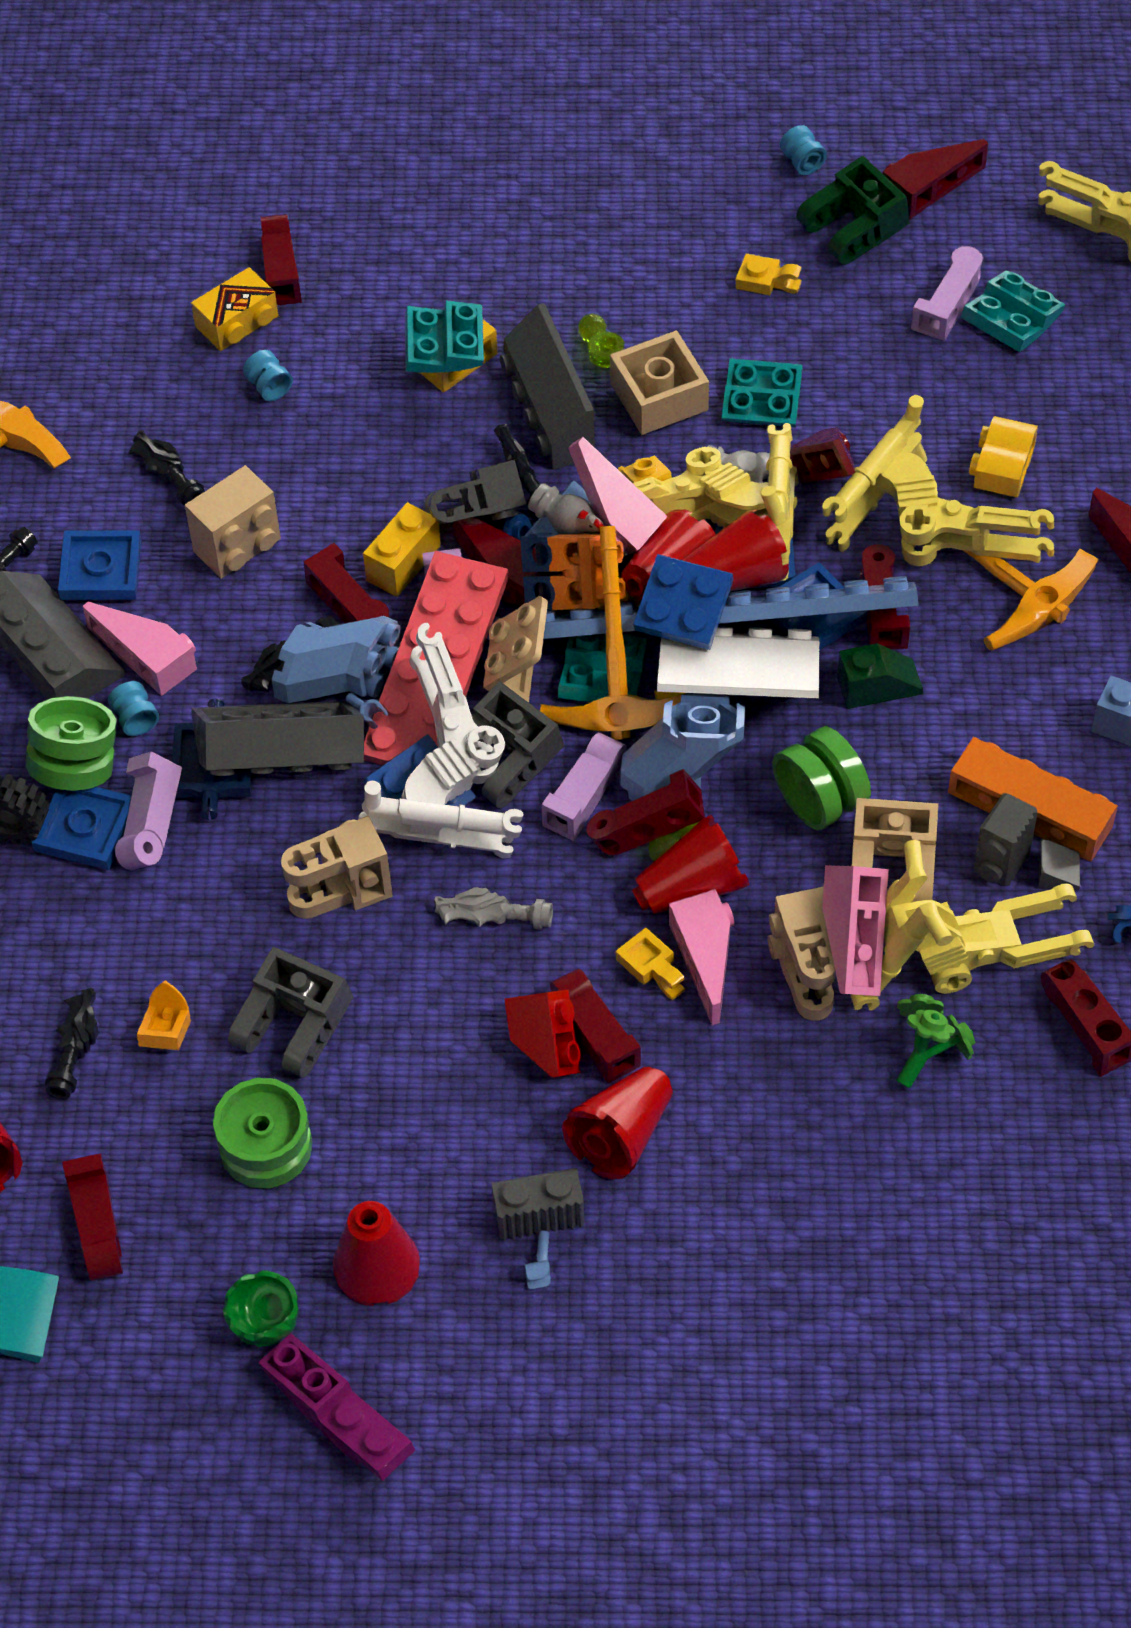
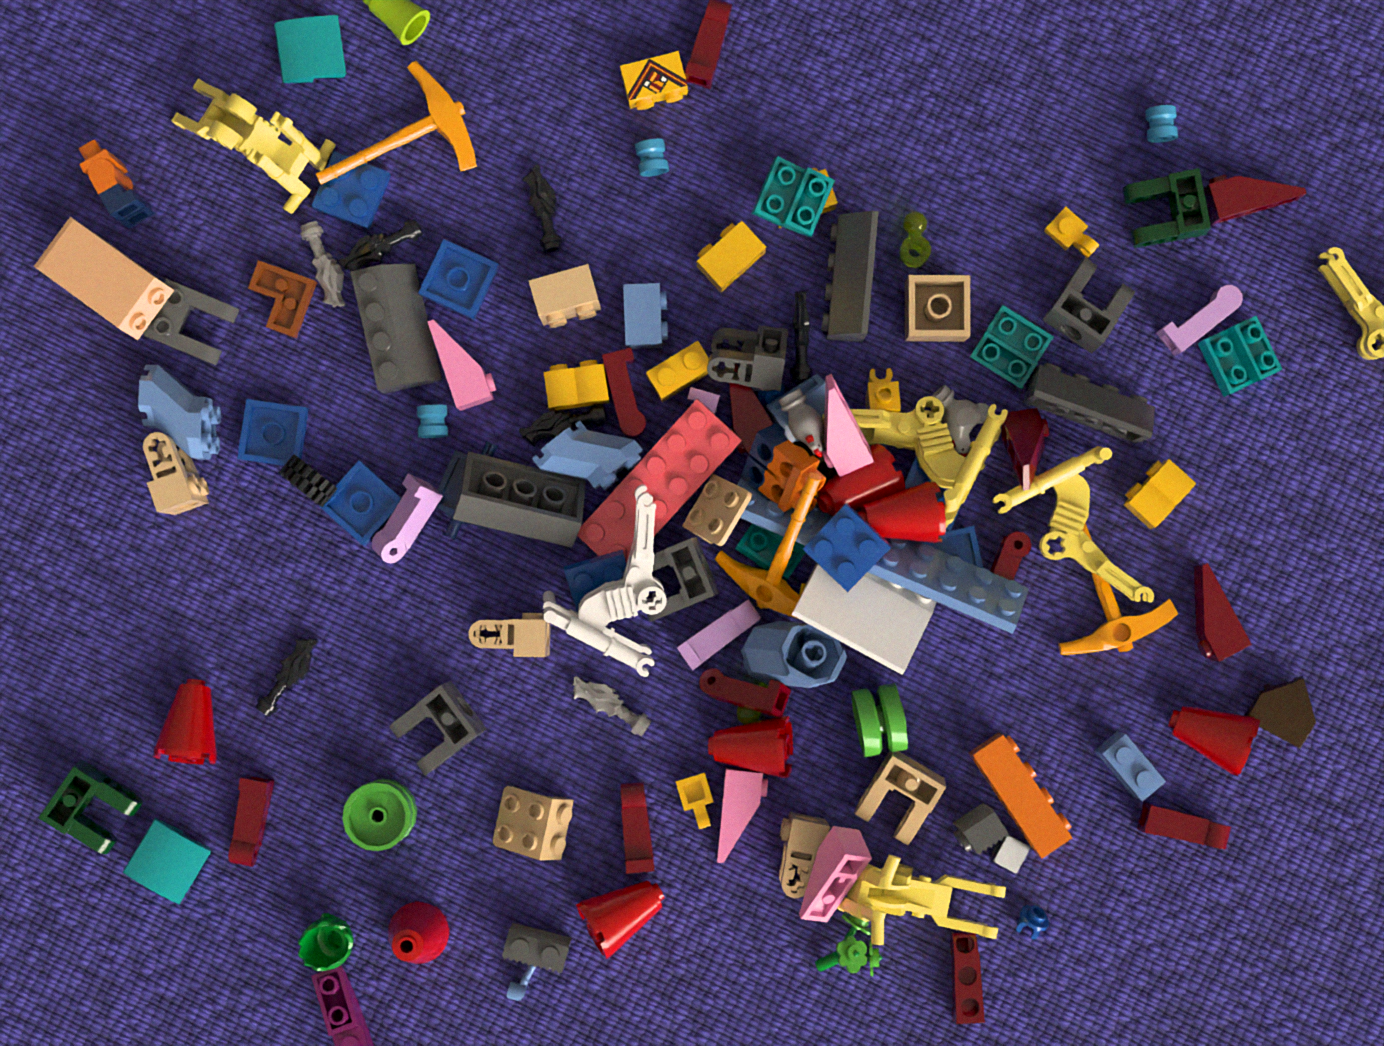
camera: 25 degrees right, 30 degrees up
(70, 743) = (372, 441): bright green wheel -> none
(165, 1019) = (352, 692): light orange plate -> none
(278, 610) = (576, 386): none -> yellow brick
(332, 514) = (643, 315): none -> medium blue brick
(366, 708) = (591, 507): medium blue hand -> none
(403, 427) = (730, 255): none -> yellow brick
(460, 1069) = (532, 824): none -> tan bracket
(545, 1030) = (598, 823): red slope -> none
(821, 332) = (1079, 318): none -> dark grey brick
(875, 406) = (1090, 404): none -> dark grey slope
(876, 676) = (967, 642): dark green slope -> none

